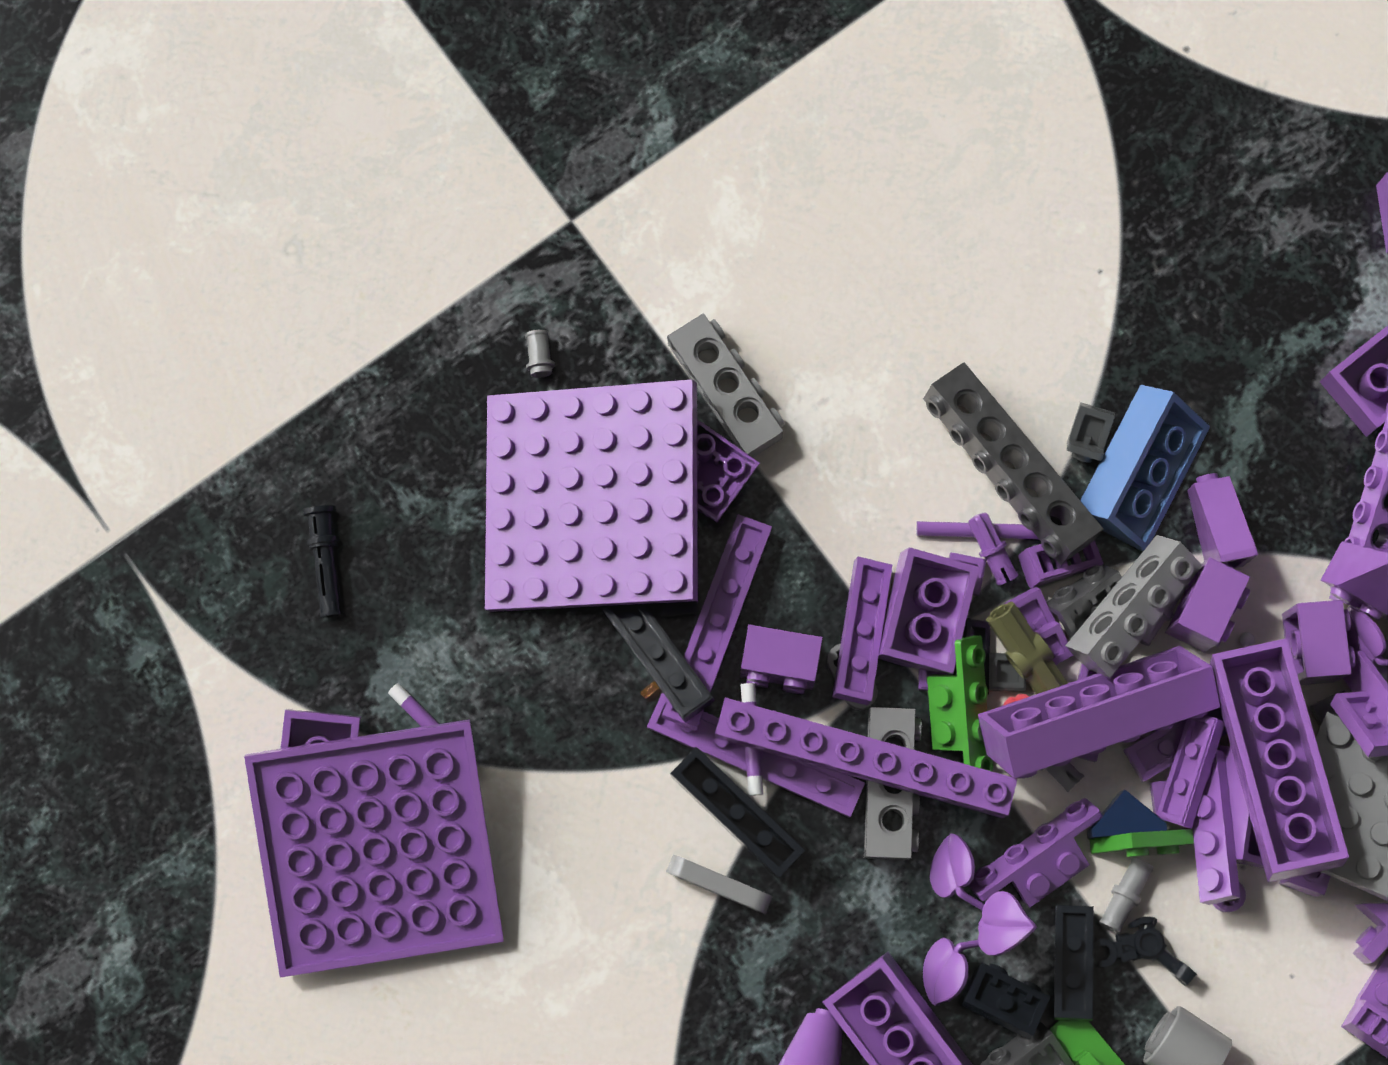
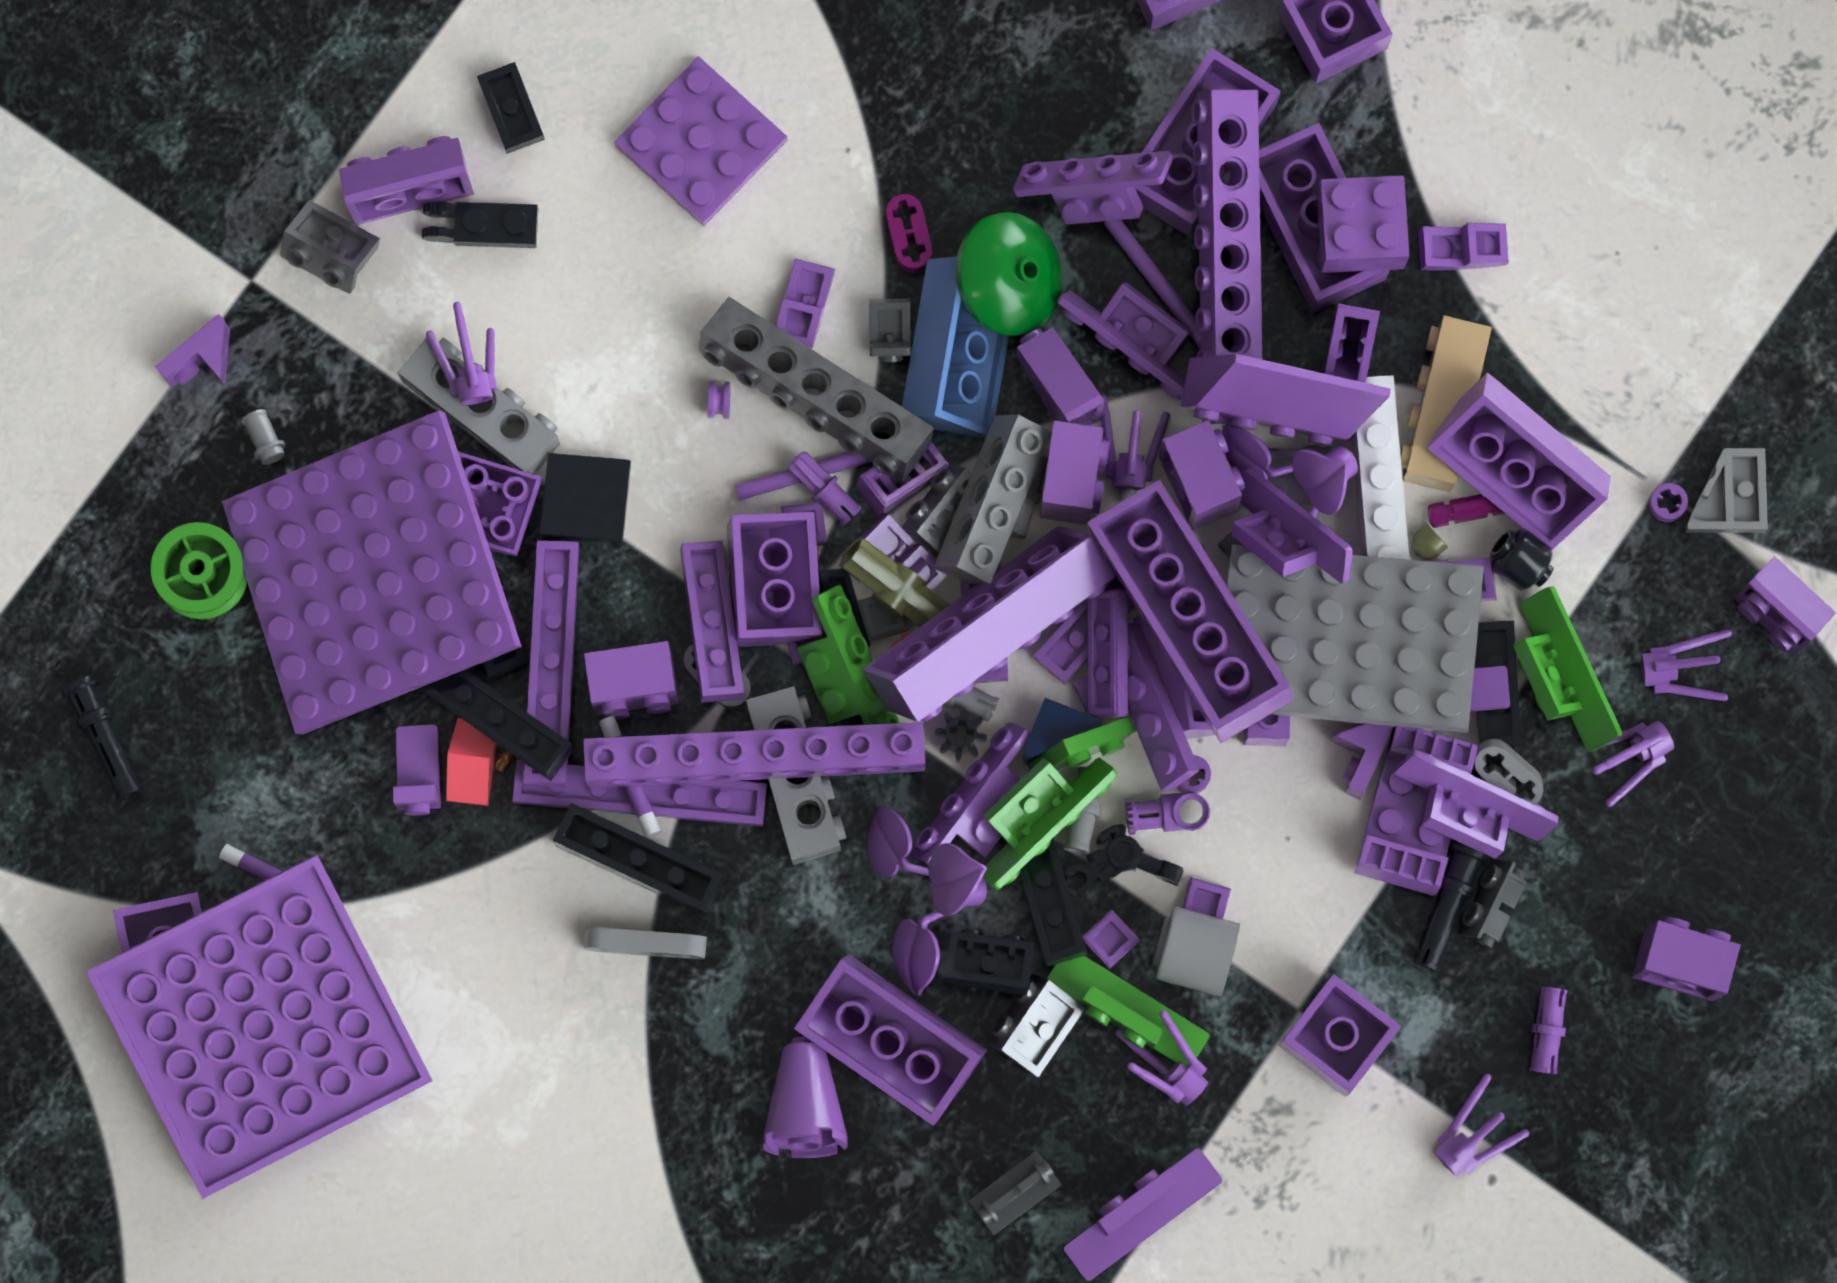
camera: 20 degrees left, 0 degrees up
(449, 468) = (215, 588): none -> bright green wheel
(516, 262) = (207, 346): none -> medium lavender slope
(576, 673) = (417, 769): none -> medium lavender bracket
(620, 684) = (469, 766): none -> coral slope
(643, 212) = (328, 246): none -> flat silver bracket
(725, 178) = (405, 180): none -> medium lavender slope
(728, 367) = (473, 384): none -> medium lavender plant
(778, 236) = (484, 224): none -> black hinge
(789, 491) = (585, 498): none -> black tile
(831, 146) = (510, 107): none -> black plate
(927, 445) = (719, 399): none -> medium lavender bush
(980, 225) = (701, 141): none -> medium lavender plate
(1025, 385) = (805, 301): none -> medium lavender slope
(1052, 793) = (952, 727): none -> black gear
(1090, 885) = (1037, 812): none -> bright green bracket
(1114, 1013) = (1110, 939): none -> medium lavender tile
(1138, 358) = (900, 235): none -> magenta beam
(1196, 921) = (1167, 813): none -> medium lavender connector
(1206, 419) = (994, 279): none -> green dish
(1206, 1005) = (1206, 898): none -> medium lavender tile
(1257, 617) = (1130, 469): none -> medium lavender plant
(1299, 501) = (1137, 329): none -> medium lavender bracket
(1303, 369) = (1095, 186): none -> medium lavender bracket
(1327, 464) = (1154, 277): none -> medium lavender bar

